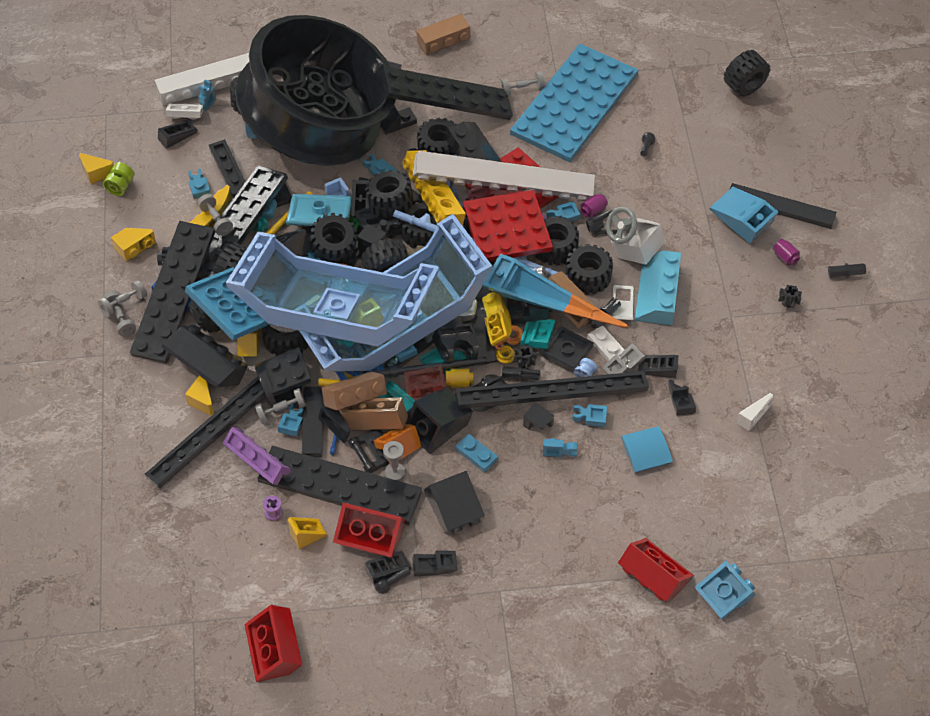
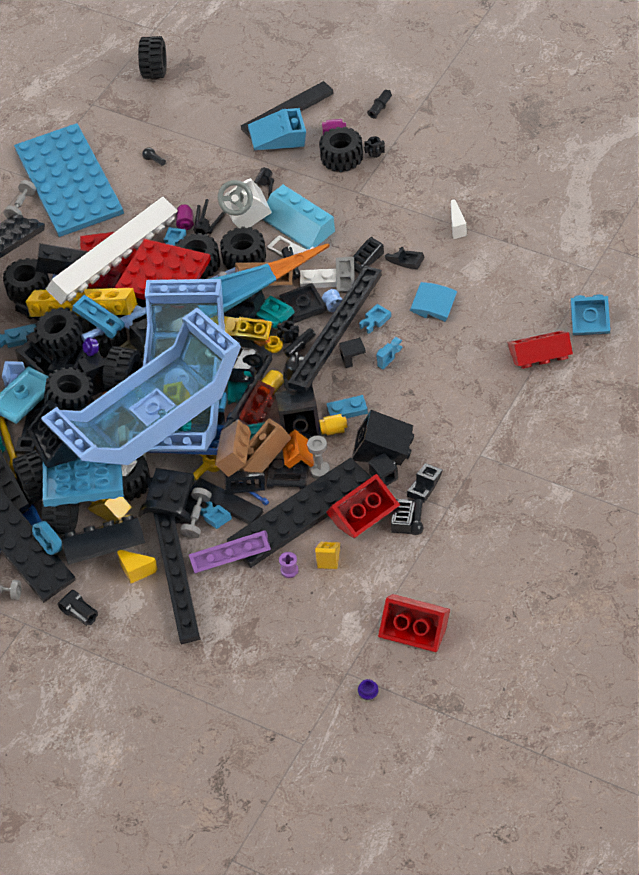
camera: 50 degrees left, 5 degrees down
(135, 378) = (74, 605): none -> black piece
(178, 315) = (47, 537): none -> dark azure beam
(181, 649) = (368, 689): none -> dark purple plate
(382, 222) = (90, 346): none -> dark purple plate
(418, 208) = (98, 316): none -> dark azure plate
(423, 521) = (384, 468): none -> black brick
(446, 452) = (333, 424): none -> yellow brick
(685, 235) = (265, 177): none -> black plant
(767, 261) = (341, 149): none -> black tyre

